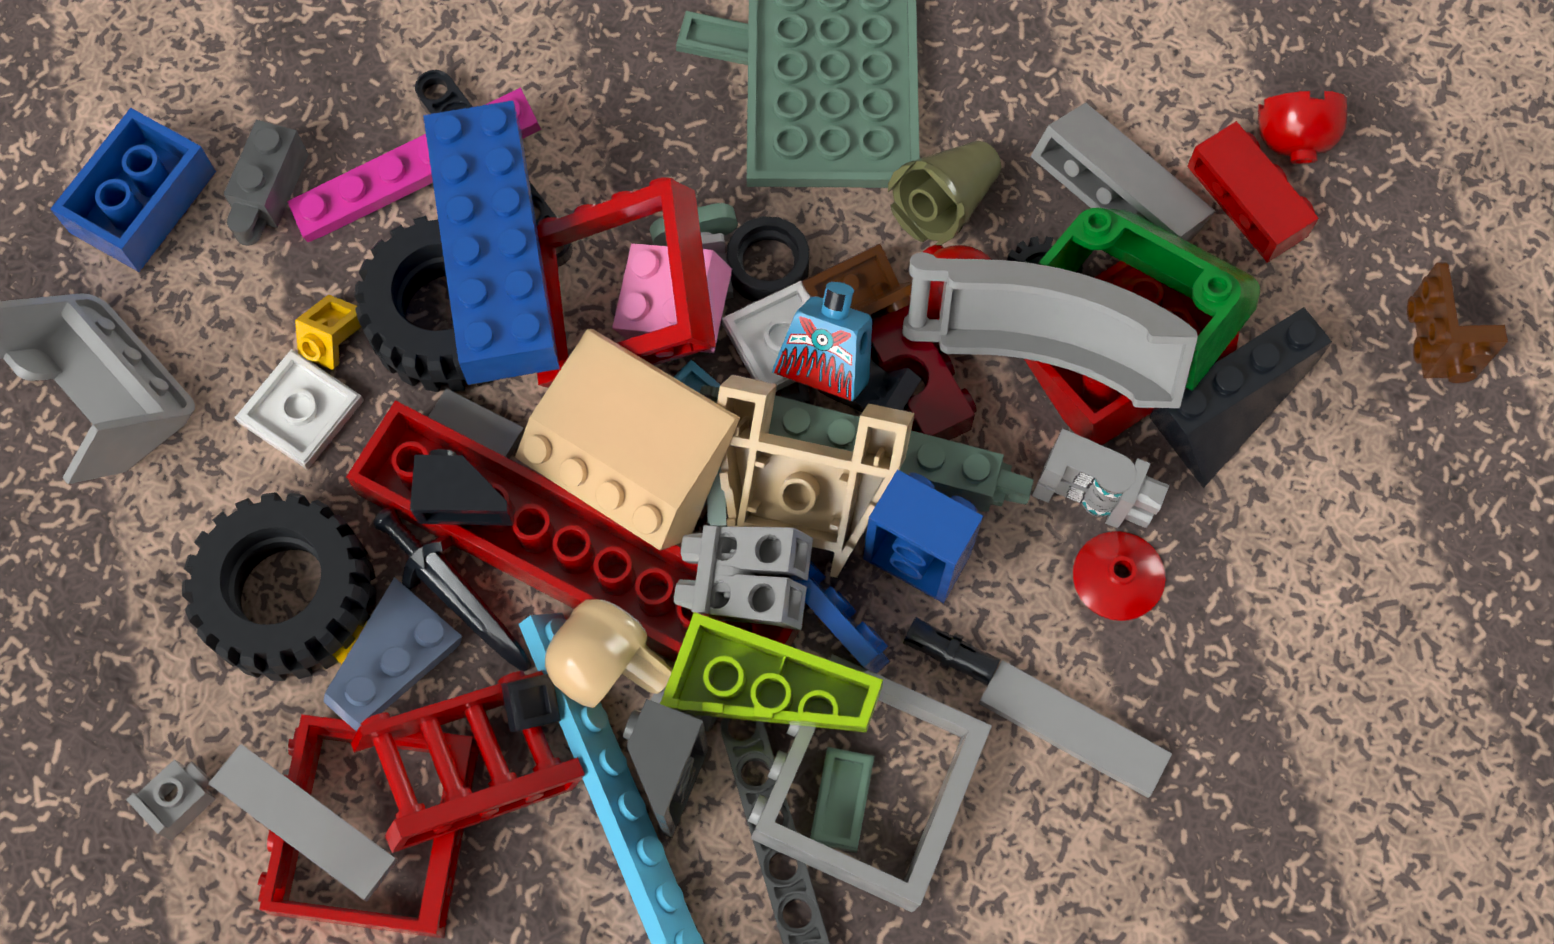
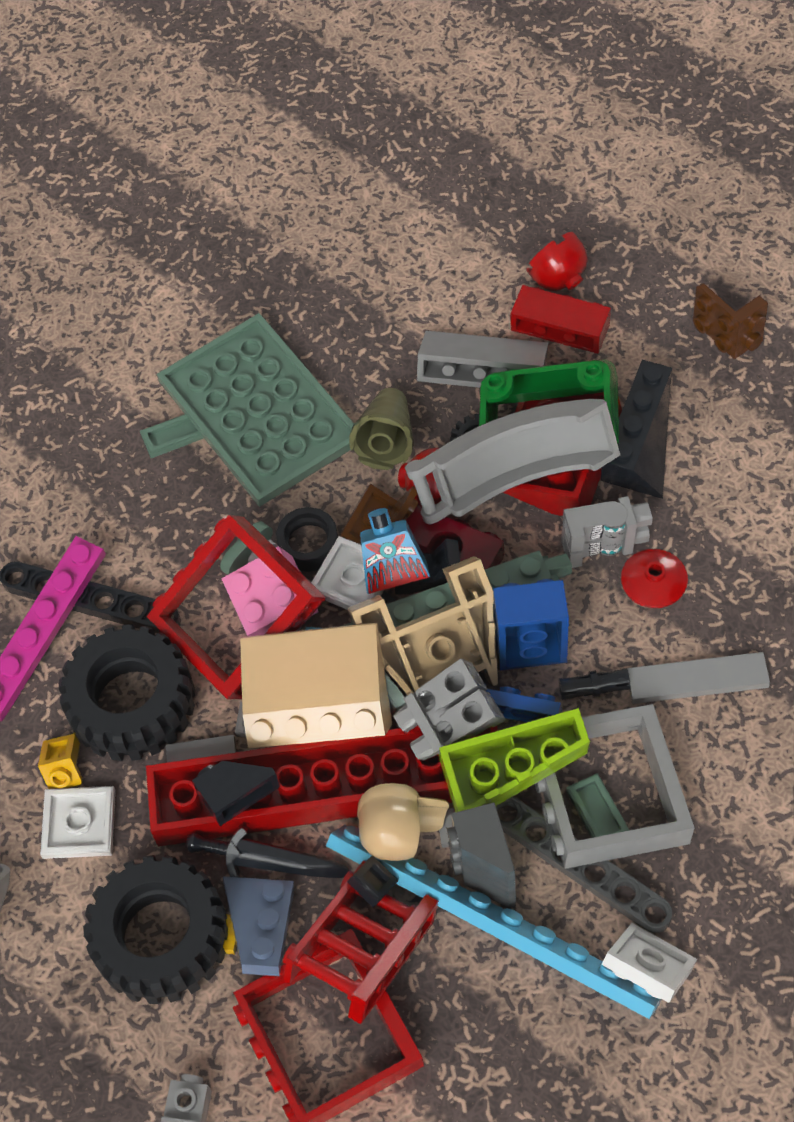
camera: 30 degrees left, 10 degrees down
(303, 822) = (287, 1051): light grey tile -> none
(490, 243) = (140, 629): blue brick -> none

